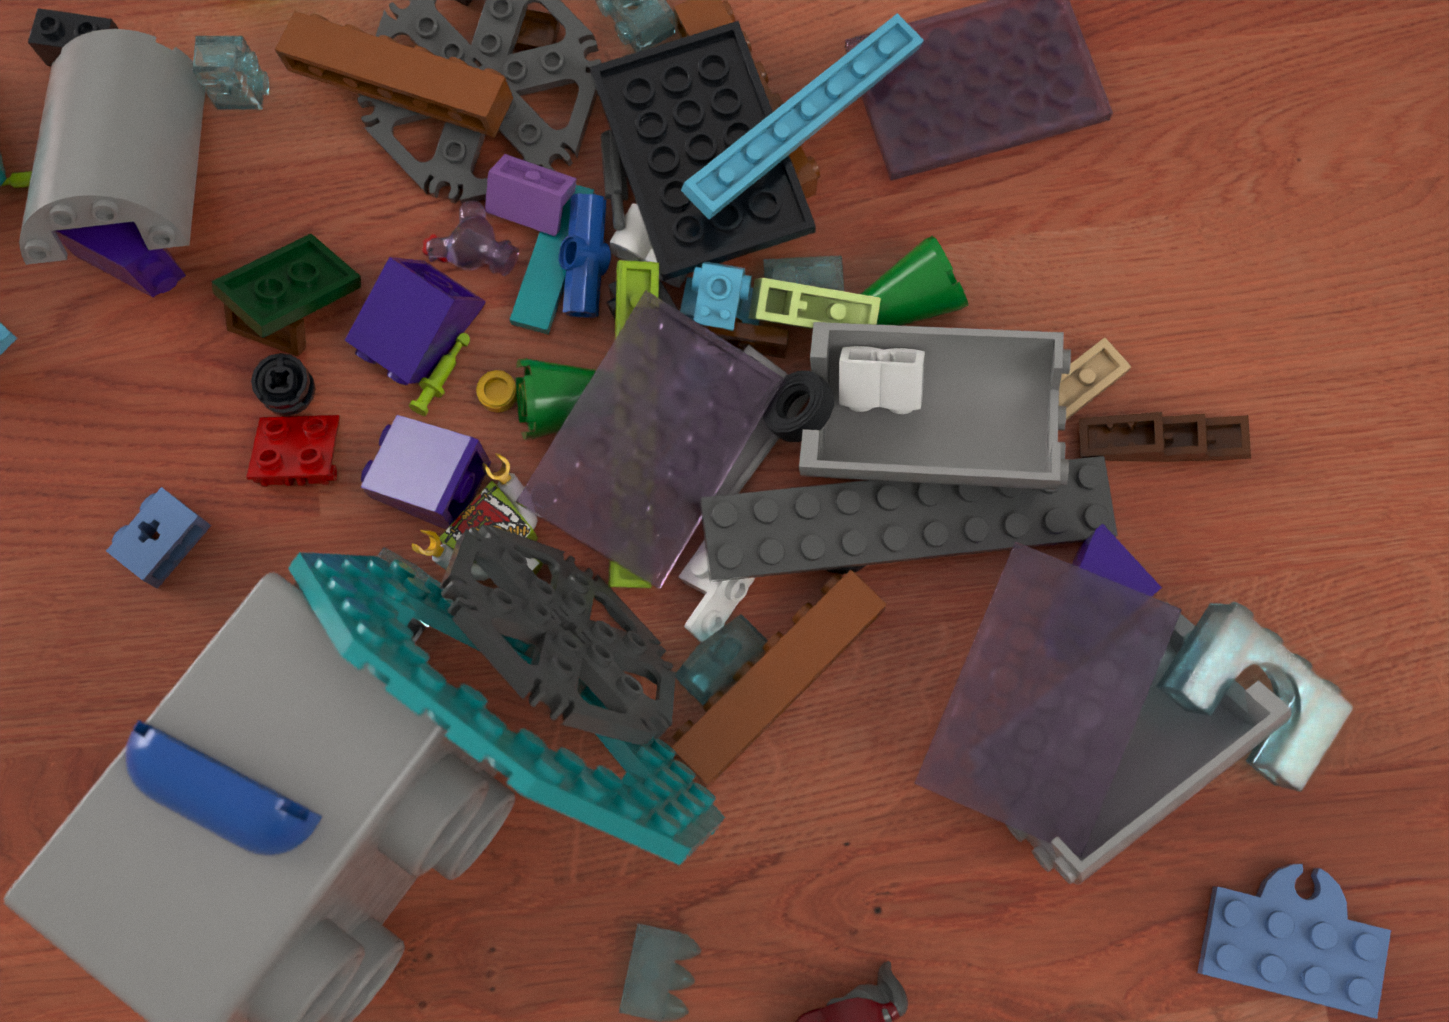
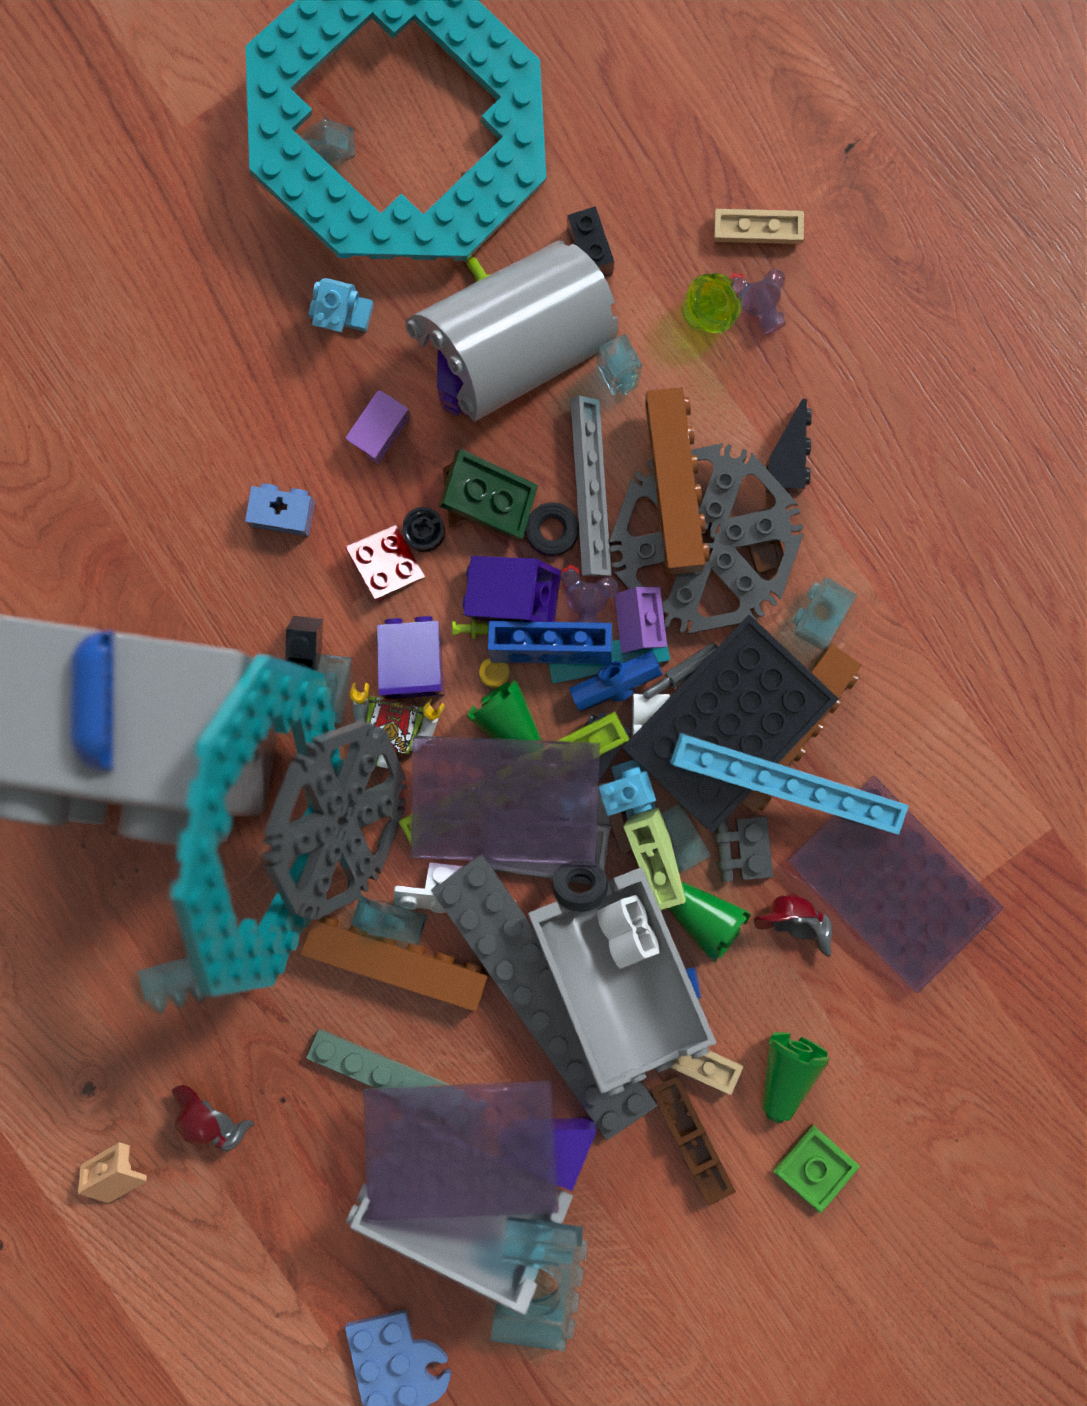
camera: 60 degrees right, 10 degrees up
(131, 370) = (379, 426): none -> medium lavender panel
(340, 173) = (590, 487): none -> light grey plate
(368, 221) = (555, 511): none -> black tyre
(497, 299) = (550, 642): none -> blue brick
(856, 208) = (752, 845): none -> dark grey plate
(878, 785) = (365, 1064): none -> sand green plate
(965, 196) = (800, 919): none -> hair
(1141, 290) = (790, 1074): none -> green cone
(1261, 320) = (816, 1168): none -> bright green tile

